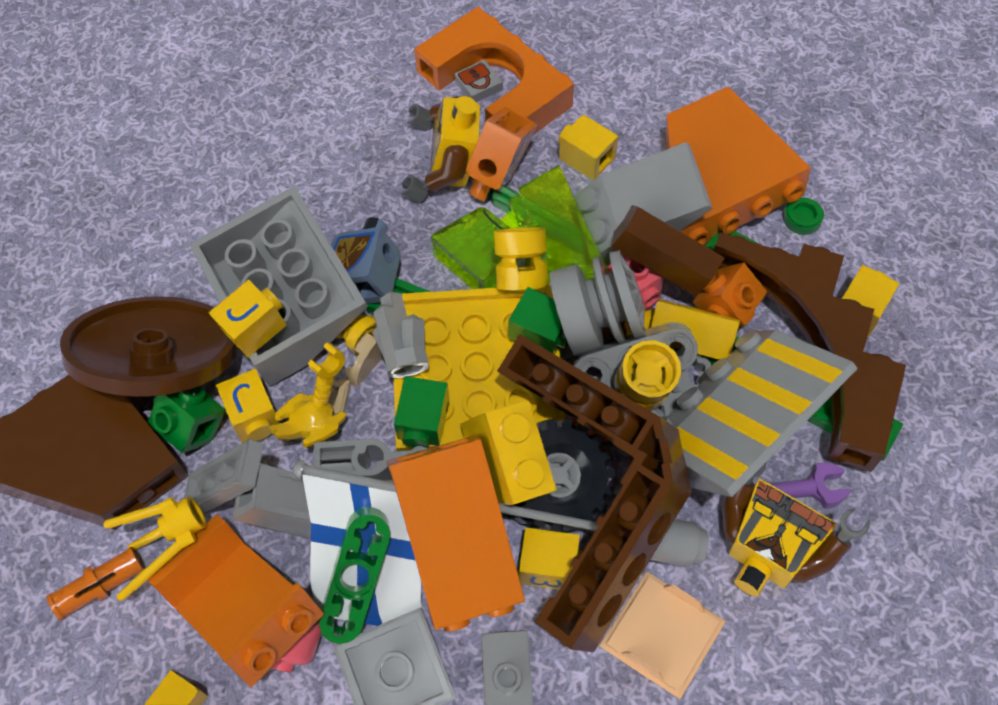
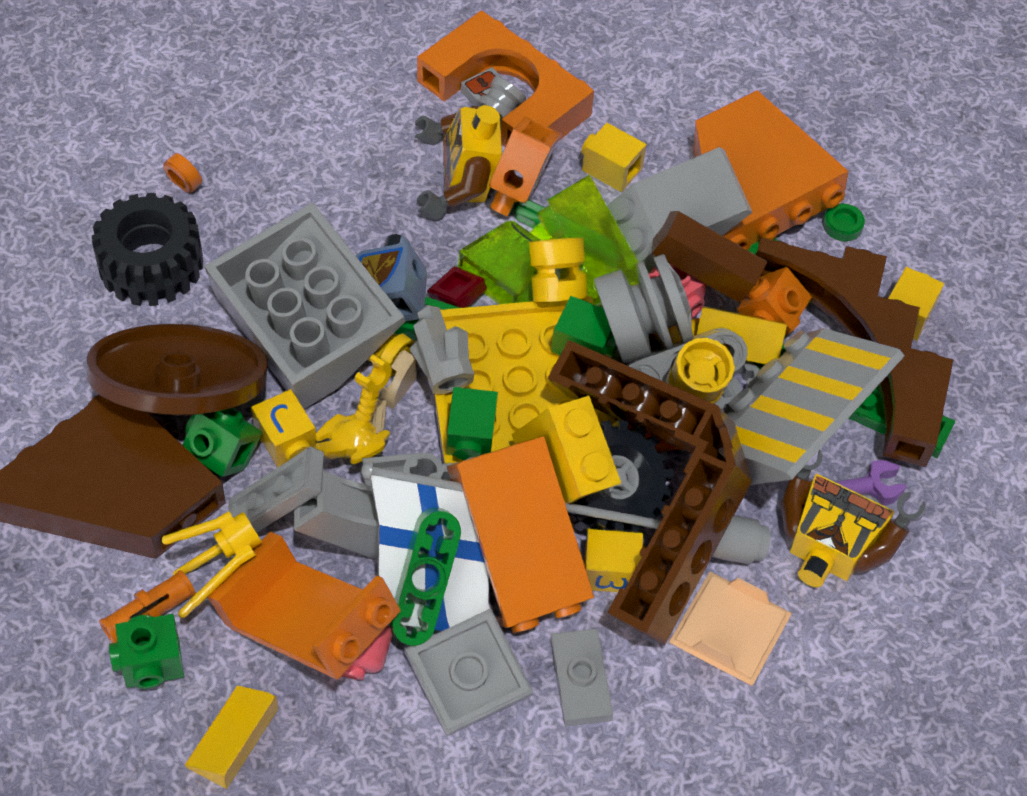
camera: 10 degrees left, 5 degrees down
(84, 633) = (147, 651): none -> green brick
(135, 202) = (151, 273): none -> black tyre
(191, 152) = (182, 173): none -> orange tile
(249, 317) = (285, 335): yellow brick -> none
(429, 270) = (458, 288): none -> dark red tile
(487, 89) = (502, 97): none -> light grey wheel

